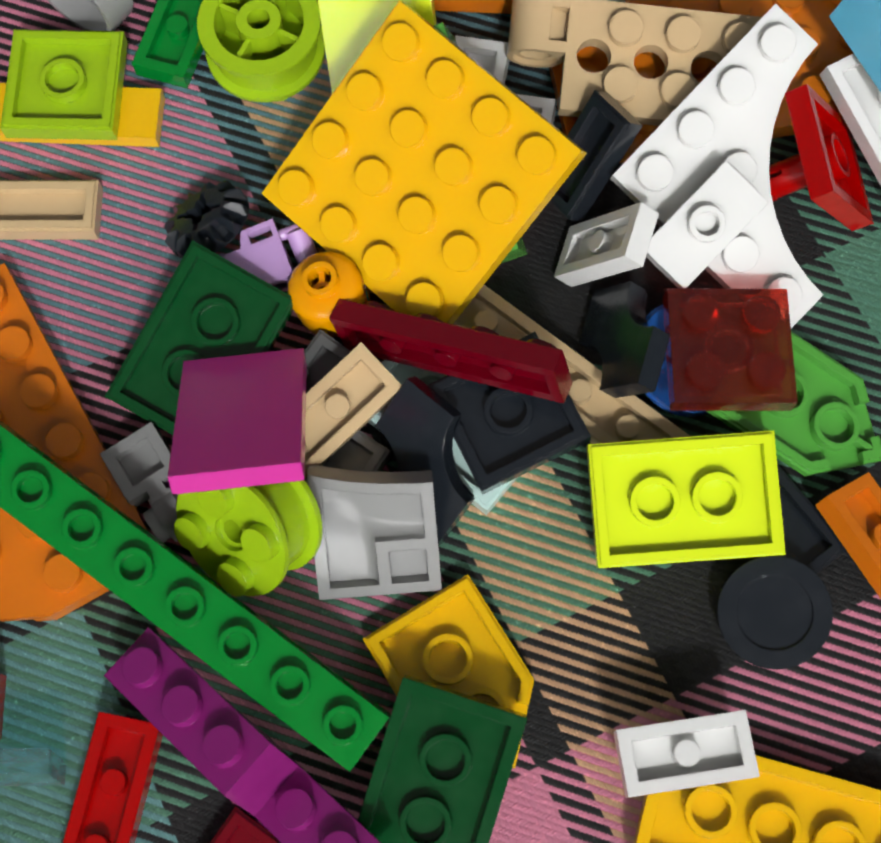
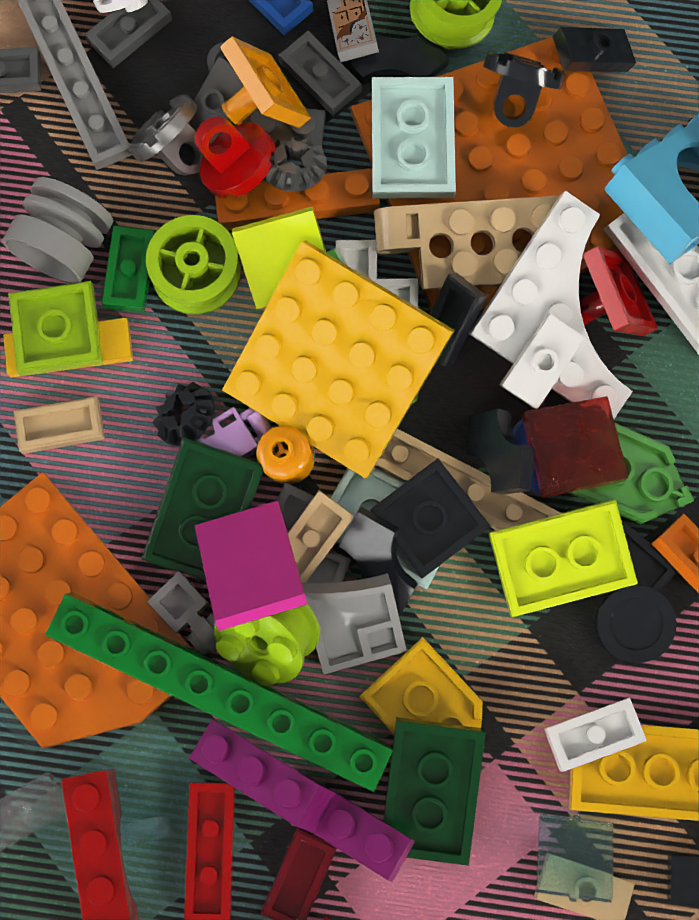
camera: 15 degrees left, 5 degrees up
(453, 350) = (396, 485): dark red plate -> none
(607, 245) = (475, 384): white plate -> none

